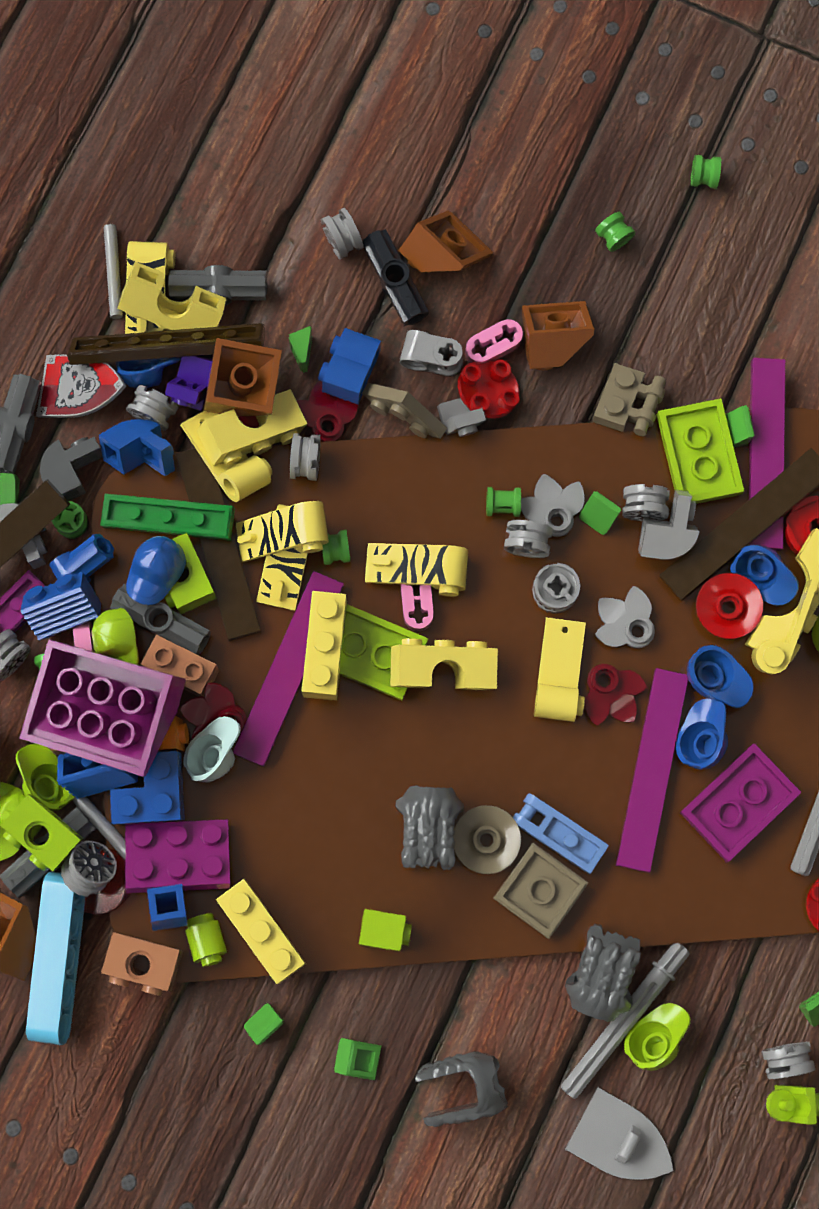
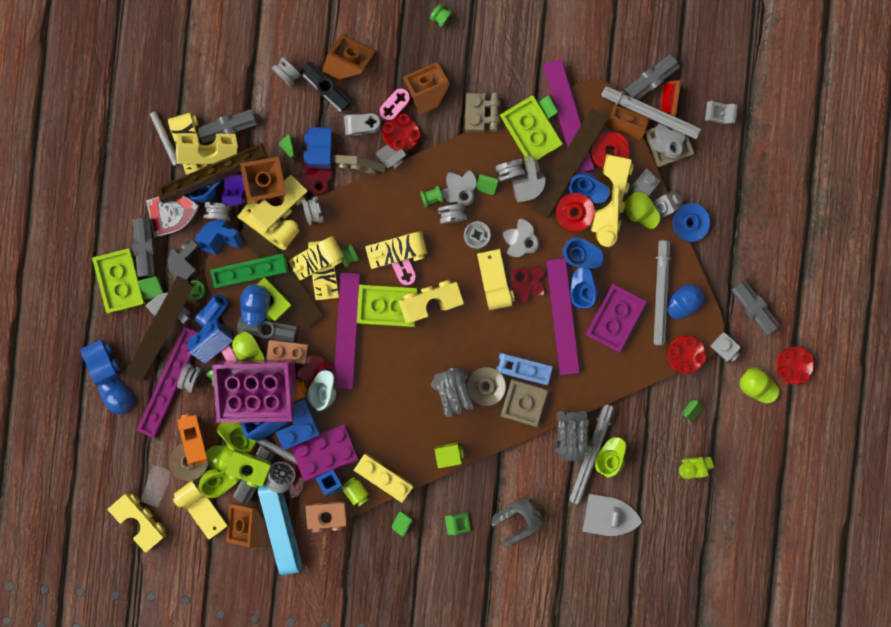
camera: 20 degrees left, 10 degrees up
(324, 645) = (362, 313): light yellow arch -> none
(788, 1060) = (684, 445): light grey wheel -> none

